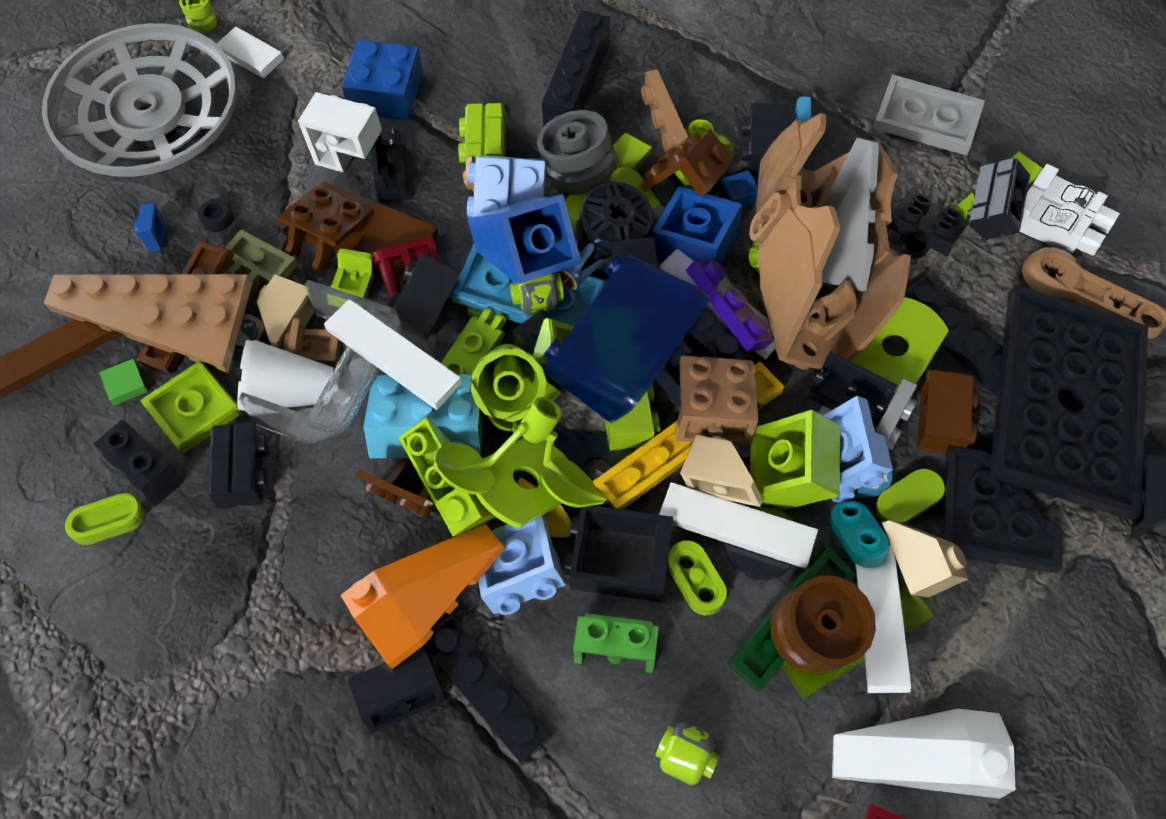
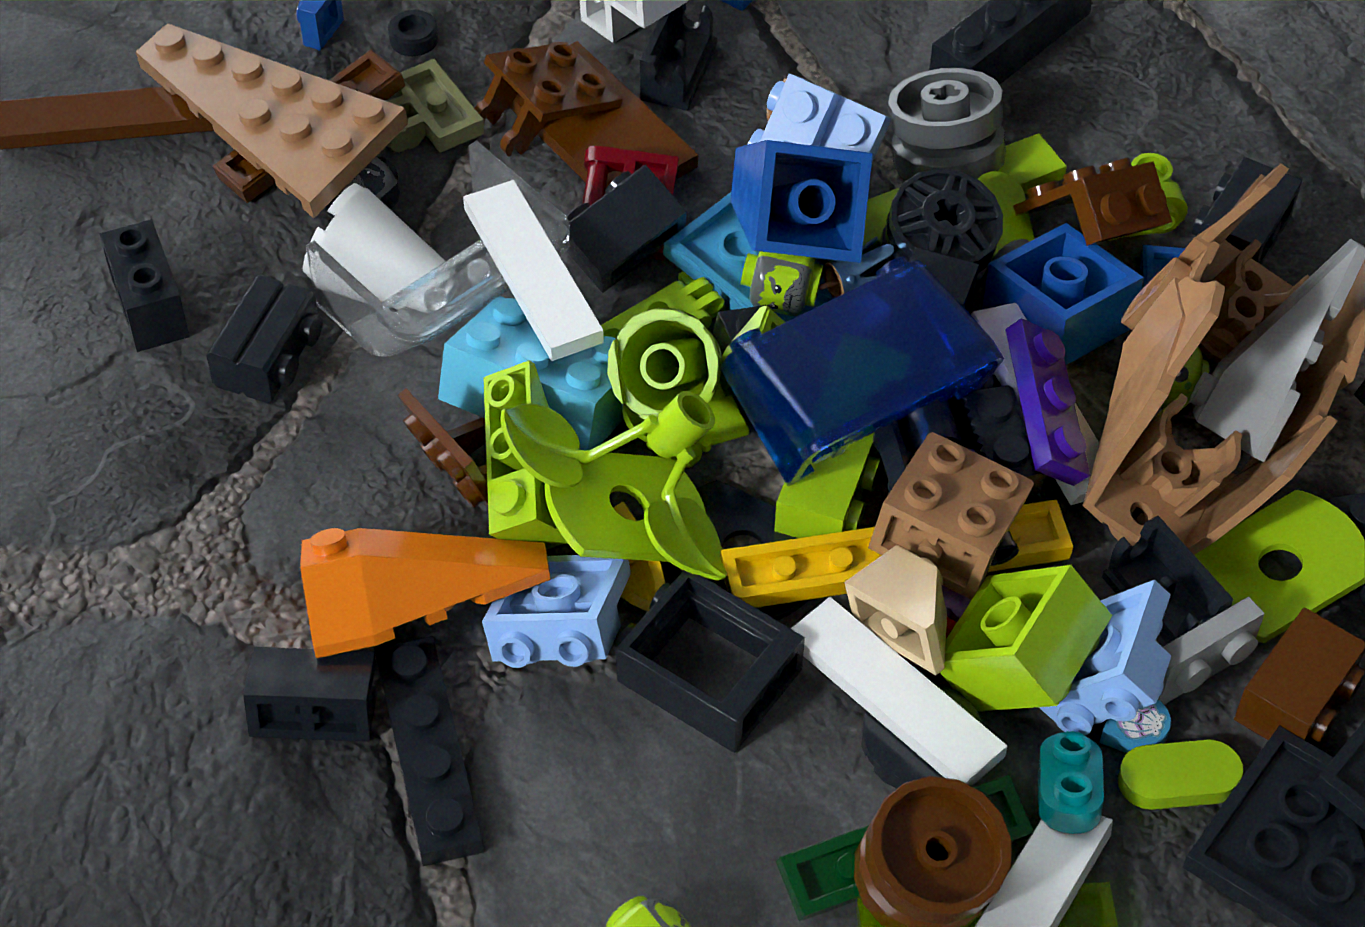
camera: 25 degrees right, 10 degrees down
(105, 519) = (67, 338): lime tile -> none
(123, 382) = (181, 187): bright green tile -> none
(191, 406) = (245, 243): lime tile -> none
(280, 304) = (431, 179): tan slope -> none
(312, 344) = (439, 228): medium nougat bracket -> none
(354, 273) = (553, 166): lime bracket -> none
(483, 131) = (834, 55): lime brick -> none
(616, 639) = (642, 758): bright green window -> none
(663, 111) = (1108, 128): medium nougat plate -> none
(697, 579) = (798, 742): lime plate -> none
(803, 109) = (1318, 207): dark azure tile -> none
(925, 560) = (1144, 858): slope -> none

